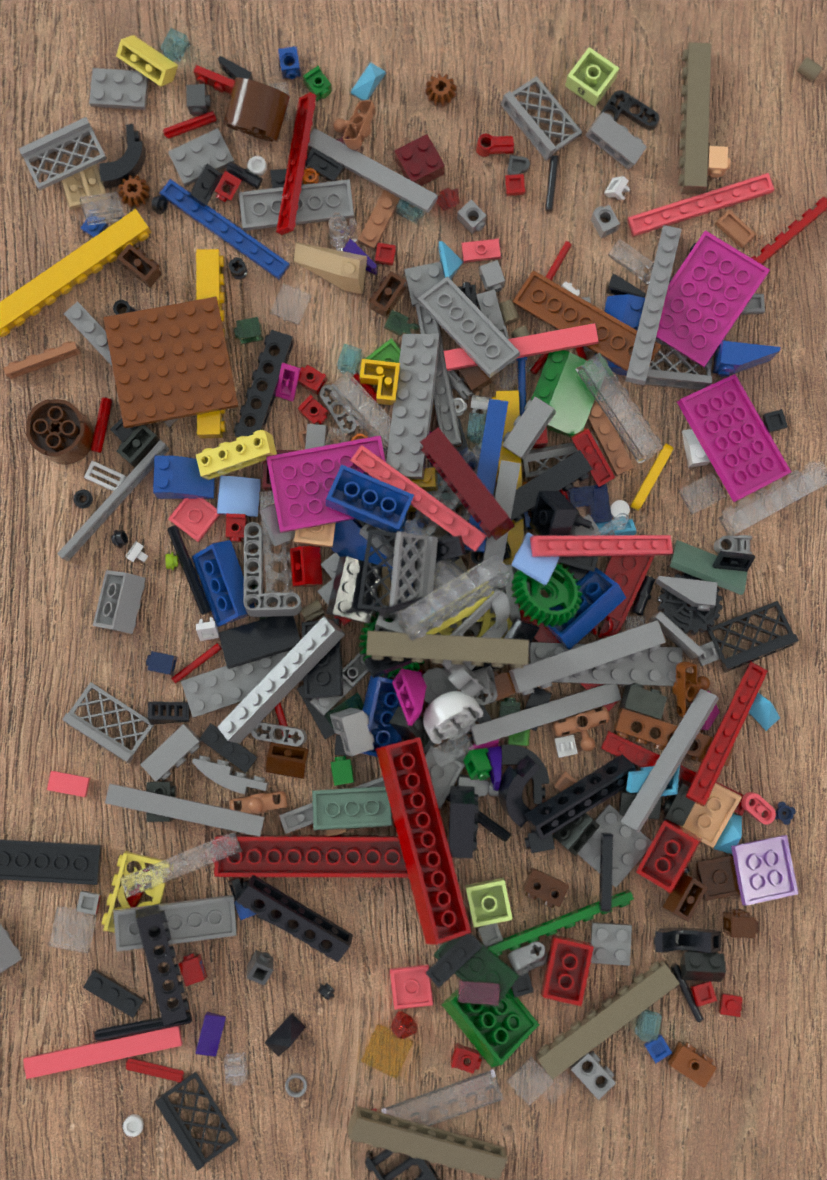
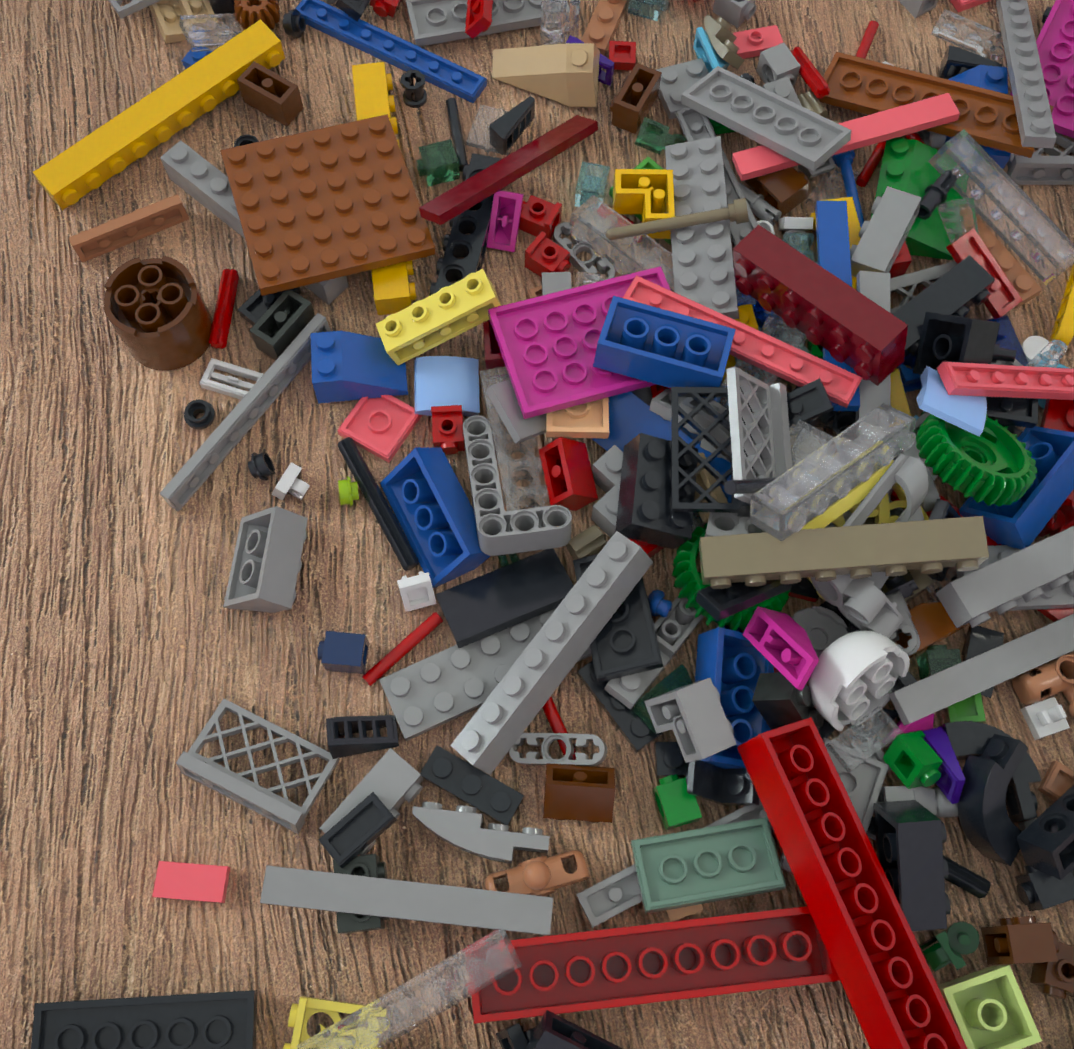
camera: 10 degrees left, 15 degrees down
(161, 768) = (357, 830): none -> black tile
(264, 306) = (456, 132): none -> black bar
(294, 347) = (507, 170): none -> dark red tile
(298, 309) = (511, 125): none -> black slope
(348, 656) = (658, 604): none -> blue arm
(364, 764) = (720, 784): none -> black bracket
(433, 403) = (735, 211): none -> dark tan piece
(454, 249) = (723, 40): none -> dark tan slope
(476, 866) = (949, 945): none -> dark green hips
(511, 284) = (810, 74): none -> red axle
(515, 868) = (1020, 941): none -> reddish brown brick
(572, 397) = (936, 194): none -> black axle
(592, 412) = (958, 217): none -> clear slope

